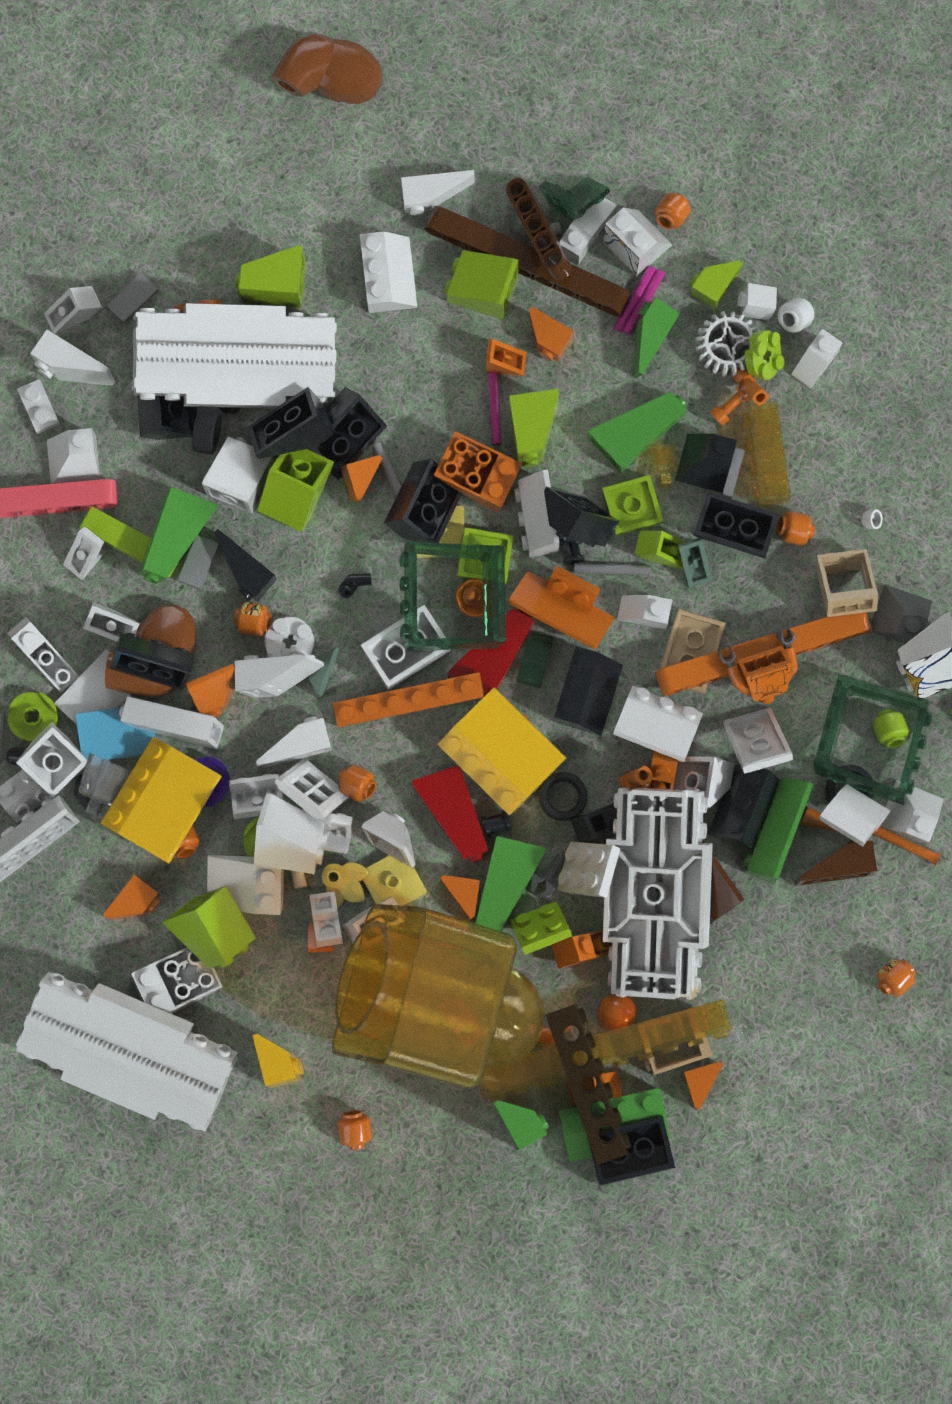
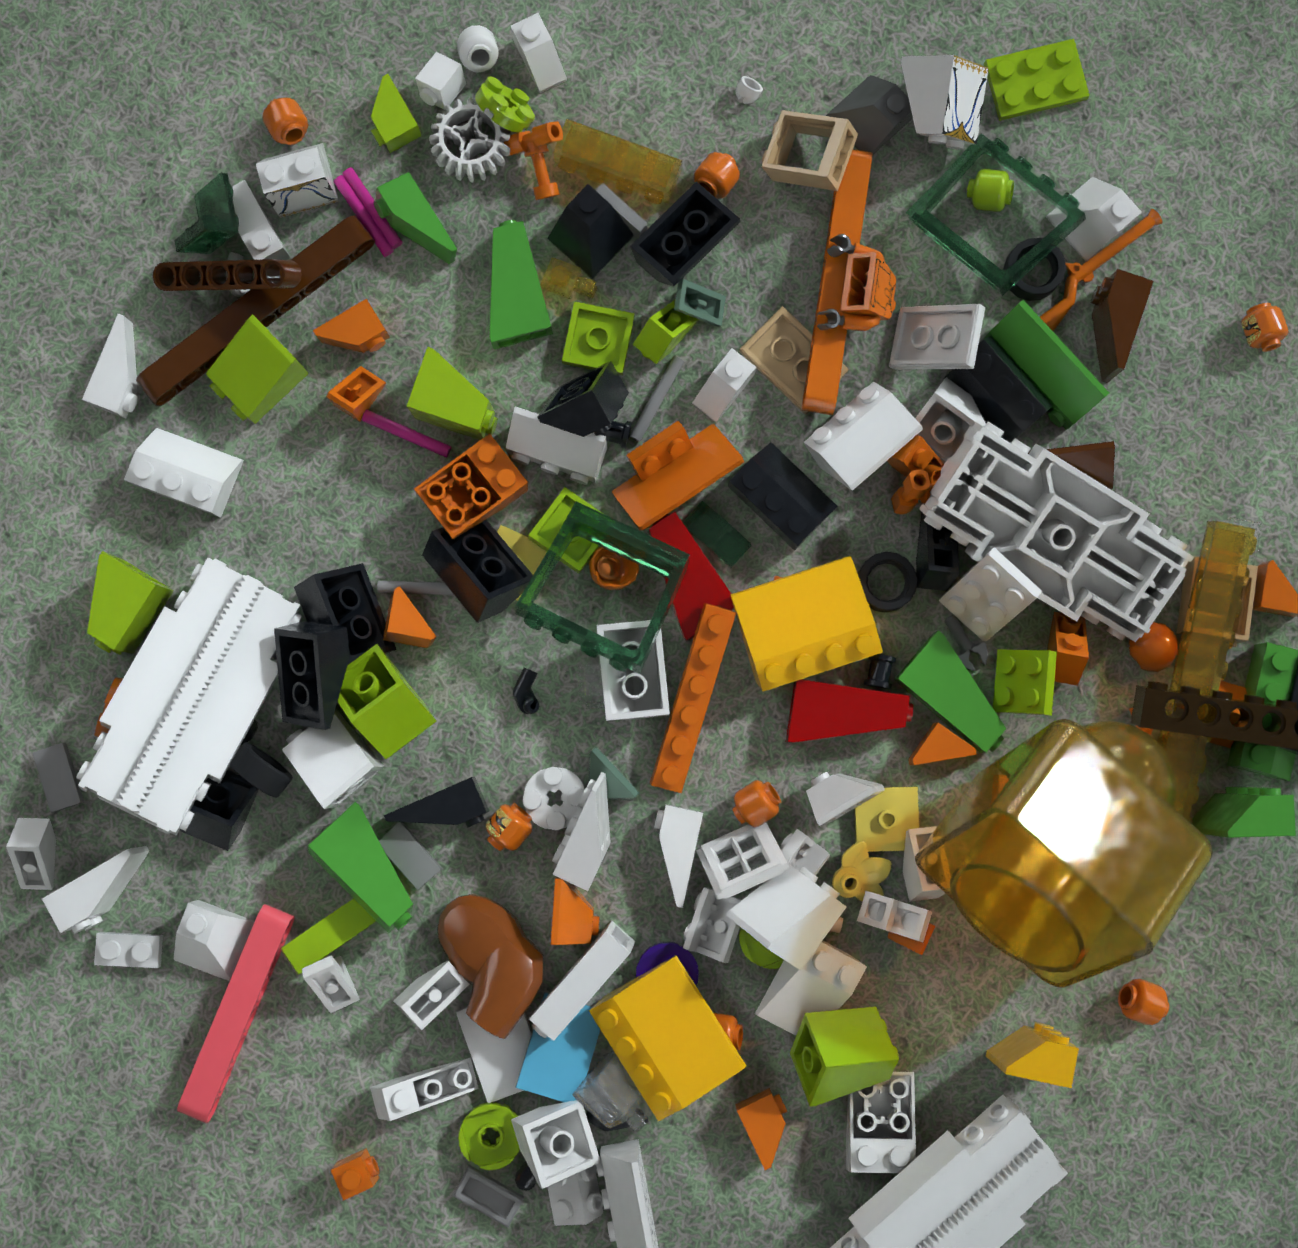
camera: 65 degrees left, 5 degrees up
(152, 661) = (505, 970): black slope -> none
(854, 814) = (1076, 274): white slope -> none

